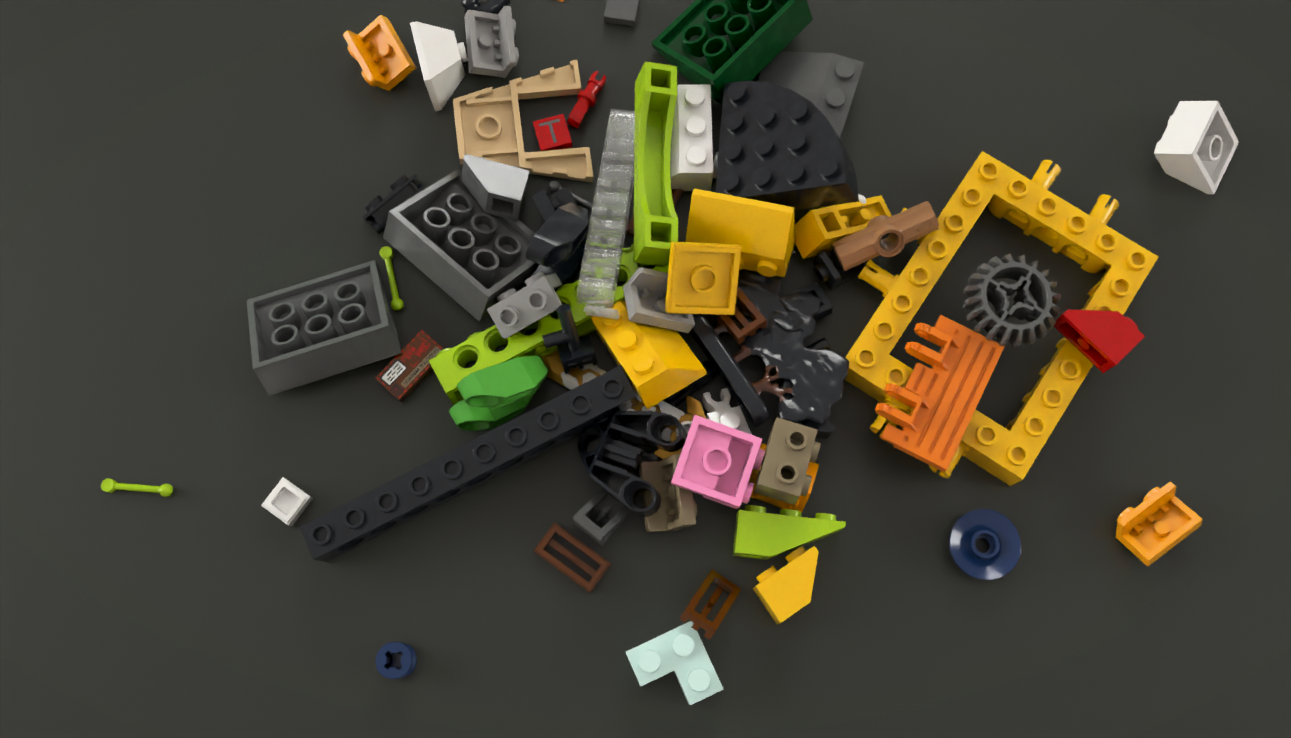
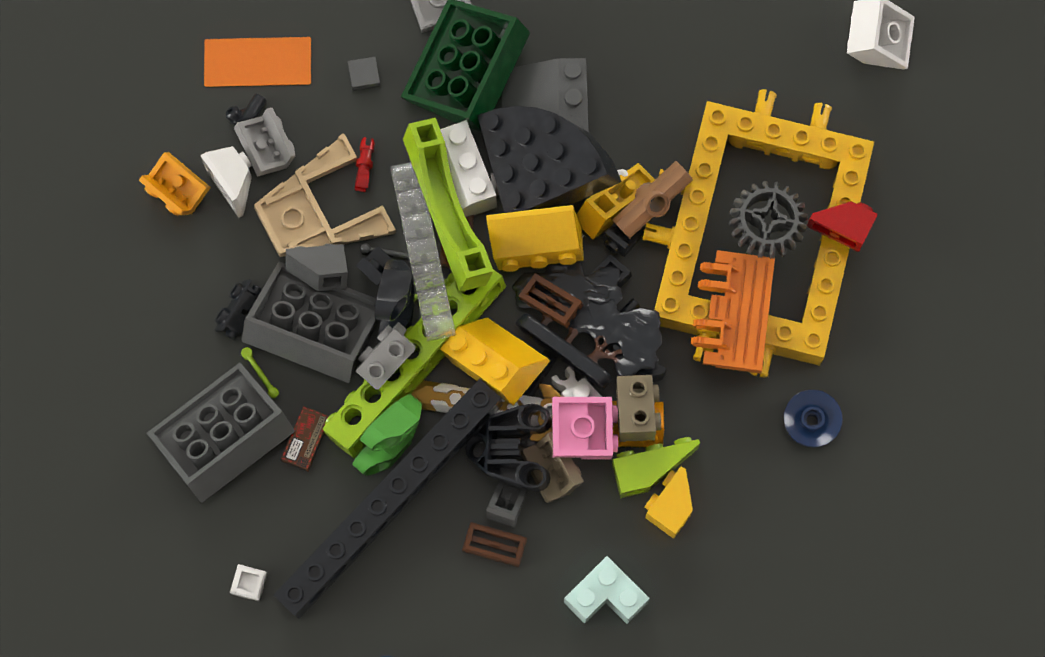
camera: 20 degrees left, 0 degrees up
(110, 485) = (97, 622): lime hinge -> none
(552, 133) = (347, 204): red tile -> none
(572, 349) = (434, 378): black arm -> none
(604, 310) = (449, 341): white leg -> none
(646, 301) = (491, 315): light grey bracket -> none
(700, 619) = (614, 552): reddish brown tile -> none
(702, 278) = (520, 286): yellow tile -> none
(1156, 524) = (939, 355): light orange bracket -> none

